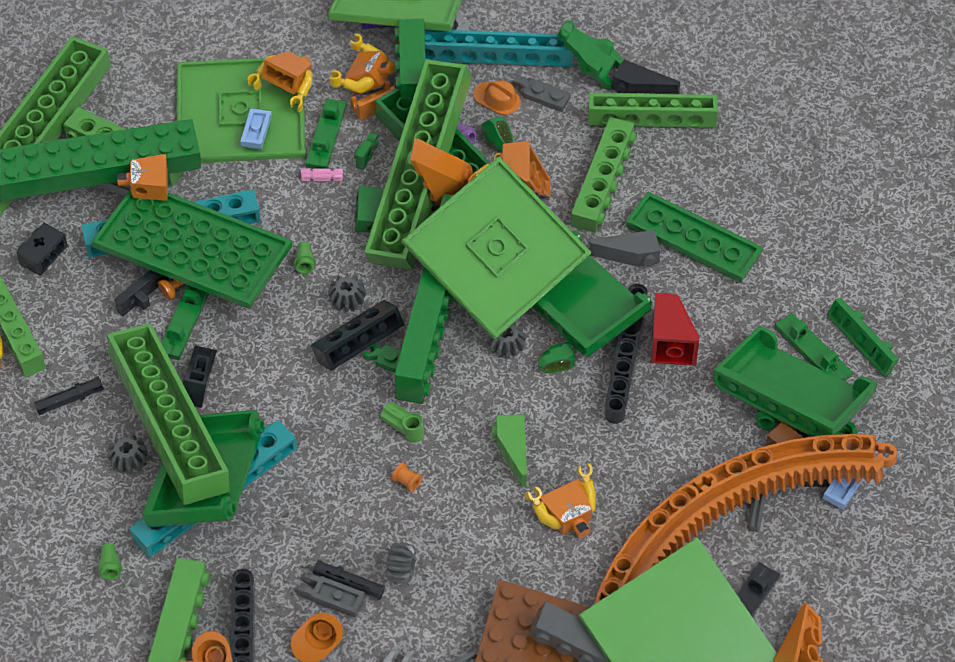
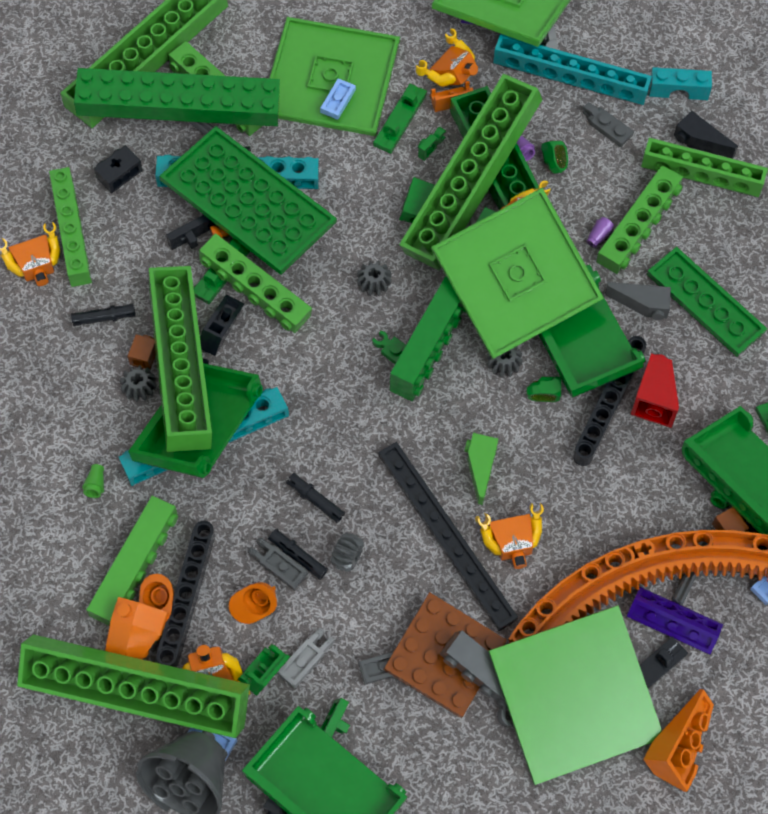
camera: 15 degrees right, 10 degrees up
(123, 420) = (142, 351): none -> dark orange brick
(147, 178) = (224, 127): orange torso -> none
(218, 316) = (267, 285): none -> bright green brick
(286, 72) = (380, 51): orange torso -> none
(304, 259) = (345, 237): bright green cone -> none
(321, 174) = (385, 157): bright pink axle -> none
(348, 519) = (308, 492): none -> black pin
(357, 335) = (371, 322): black brick -> none
(404, 421) = (388, 415): bright green piece -> none
(407, 477) = (377, 470): orange bush -> none
(411, 53) = (495, 61): green brick -> none
(440, 170) = (485, 185): orange wedge -> none
(497, 96) = (565, 118): orange piece -> none
(501, 524) = (448, 536): none -> black plate
(527, 165) = (568, 201): orange wedge -> none
(566, 195) = (600, 231): none -> medium lavender cone
(593, 55) = (663, 99): green animal -> none
(620, 32) = (666, 80): none -> teal arch
(757, 547) = (675, 621): none -> dark purple fence

